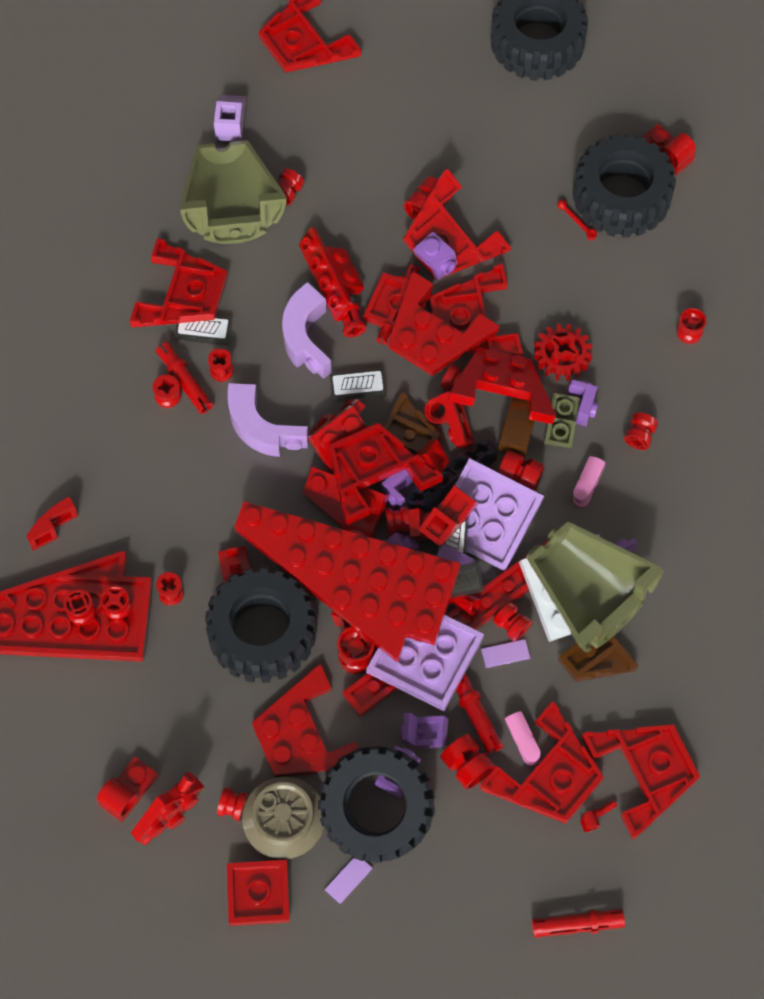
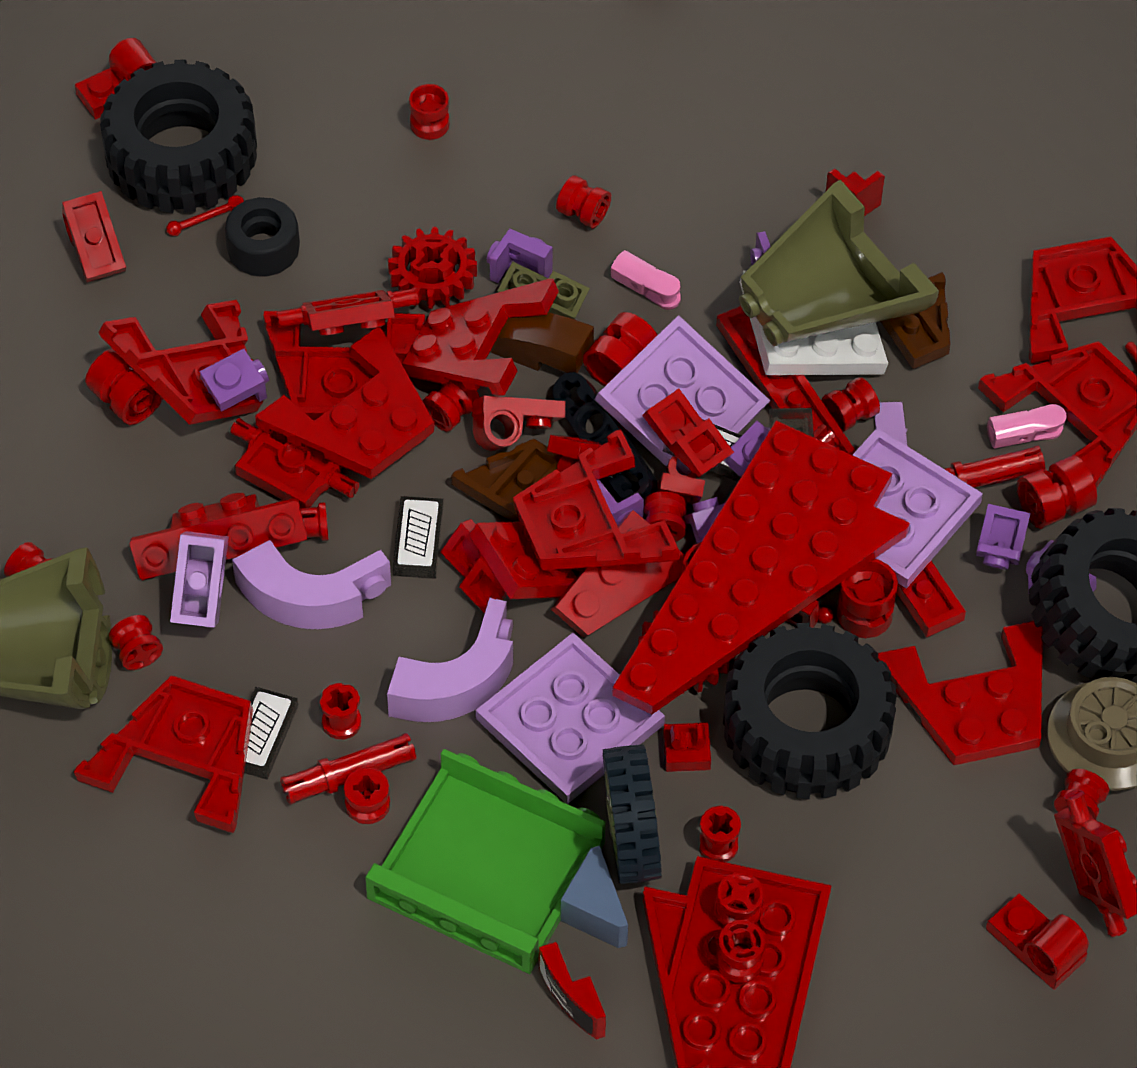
camera: 80 degrees left, 10 degrees down
(114, 525) = (593, 902): none -> sand blue slope
(132, 465) = (486, 861): none -> bright green panel
(158, 527) = (632, 814): none -> black wheel
(236, 477) = (564, 716): none -> lavender plate
(248, 248) = (135, 642): none -> red wheel
(288, 266) = (199, 579): none -> lavender brick
(510, 307) = (332, 314): none -> red plate
(539, 156) = (93, 236): none -> red plate
(564, 237) = (267, 255): none -> black tyre
(695, 600) = (867, 191): none -> red panel

